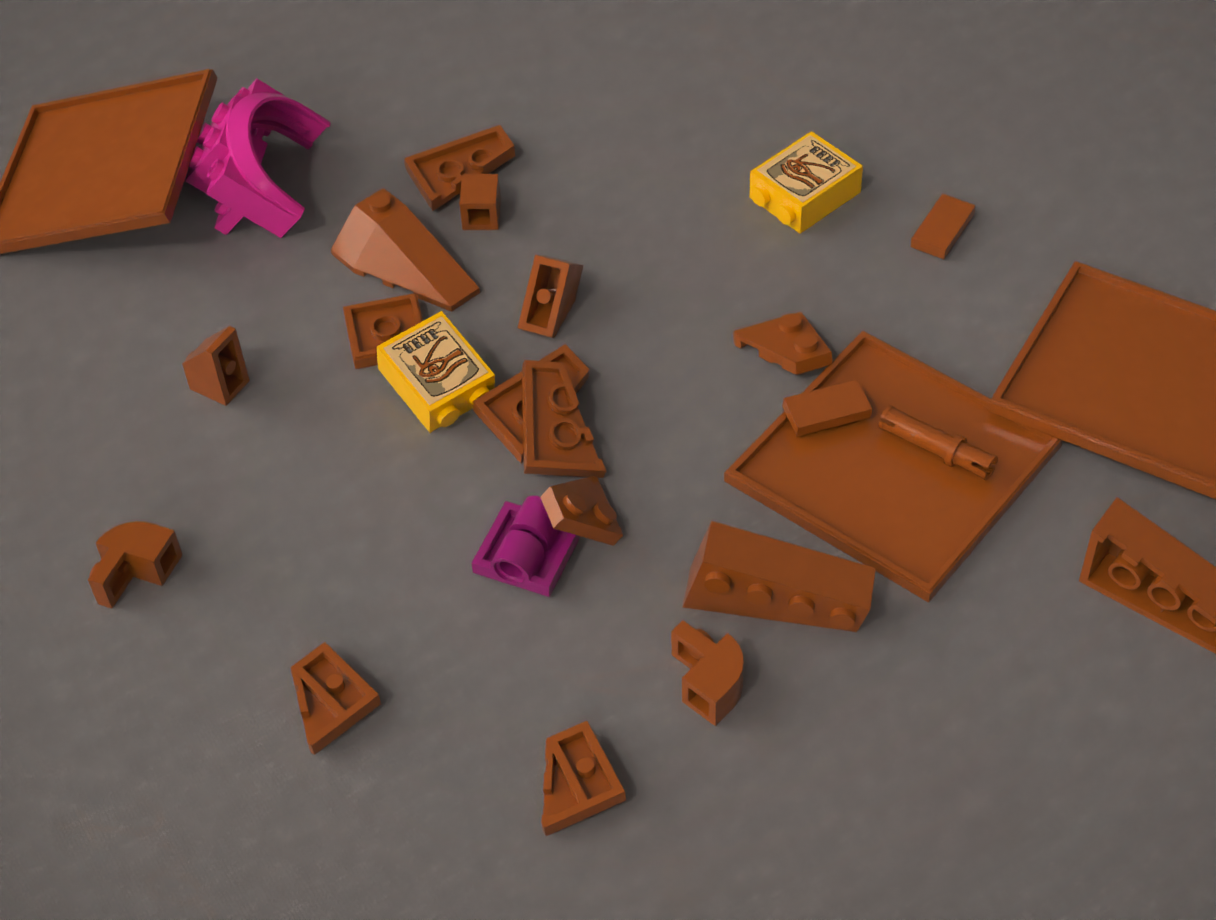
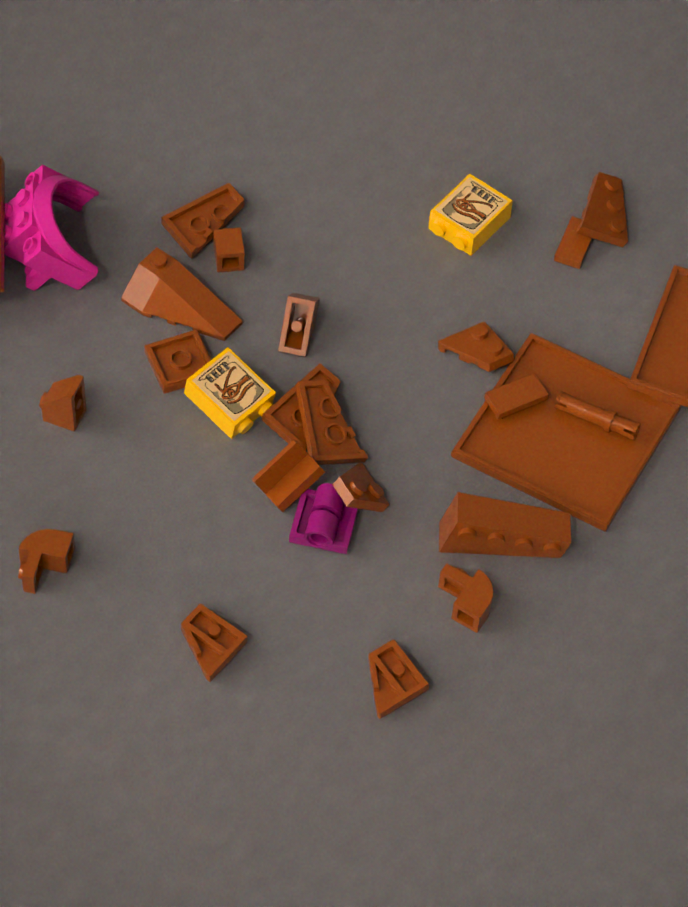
camera: 15 degrees left, 5 degrees up
(485, 481) = (288, 475): none -> dark orange panel
(988, 191) = (605, 211): none -> dark orange wing

